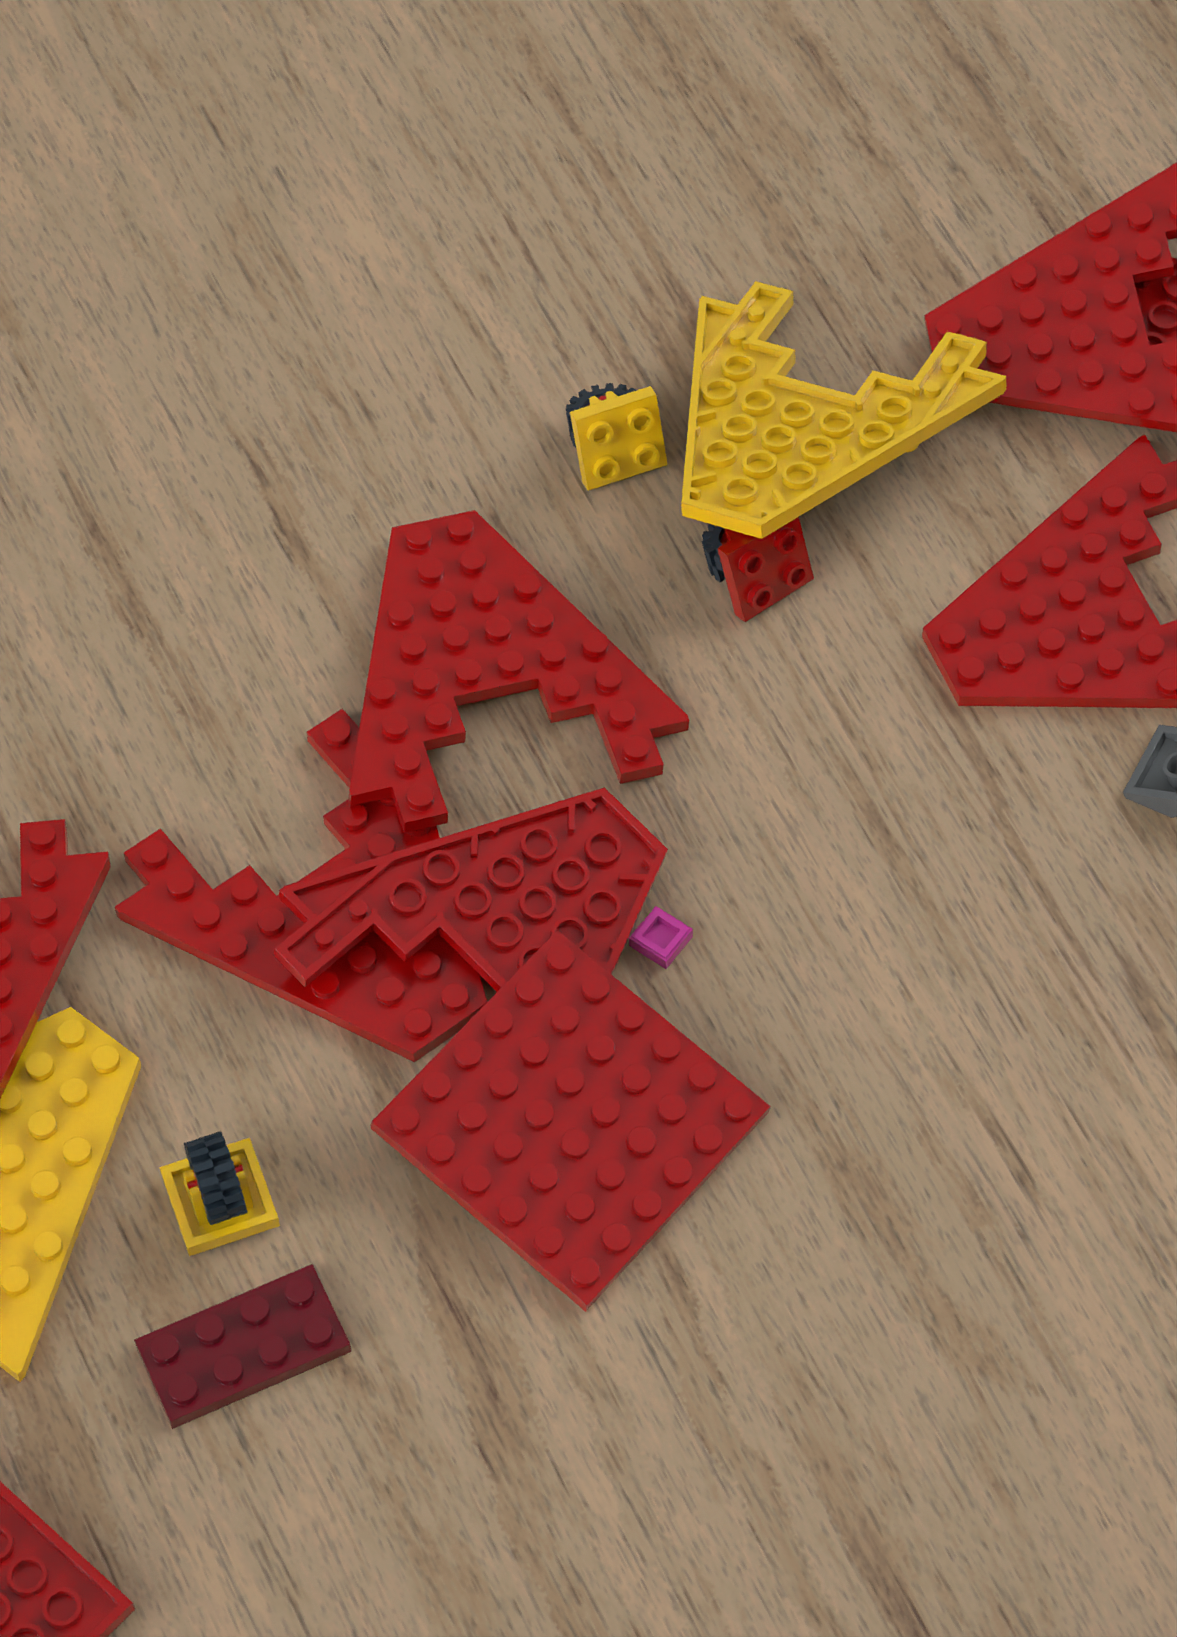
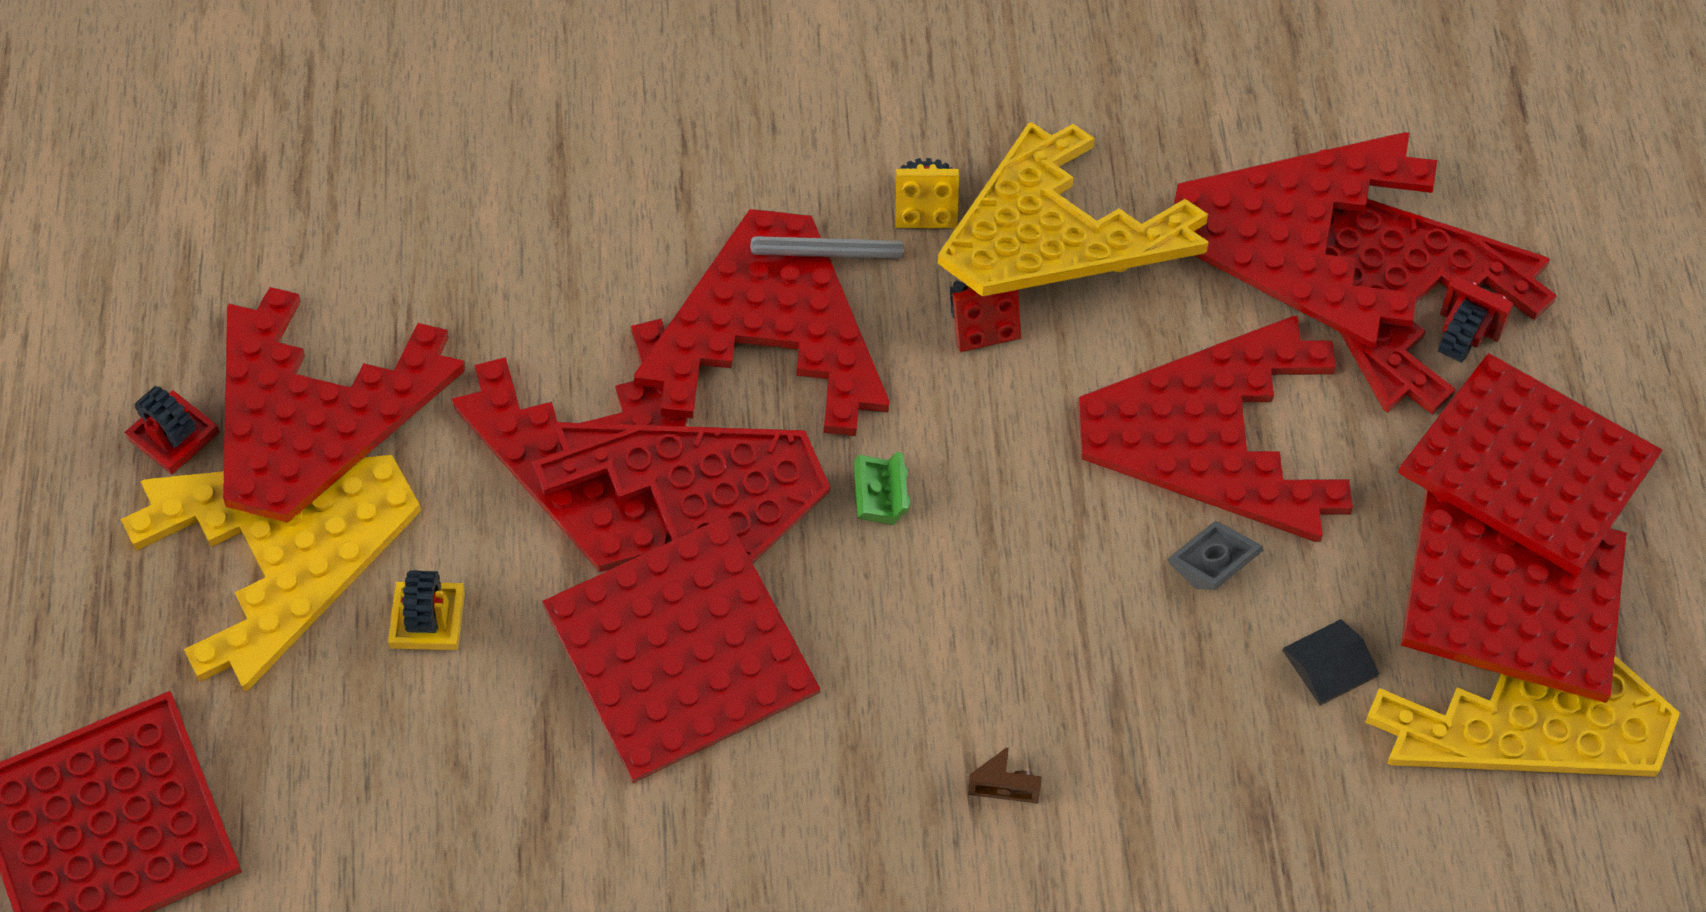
camera: 20 degrees right, 0 degrees up
(242, 1346) = (395, 721): dark red plate -> none
(518, 544) = (827, 247): none -> light grey axle
(660, 937) = (802, 546): dark pink tile -> none
(731, 827) = (881, 488): none -> bright green bracket
(1044, 1142) = (994, 782): none -> reddish brown slope

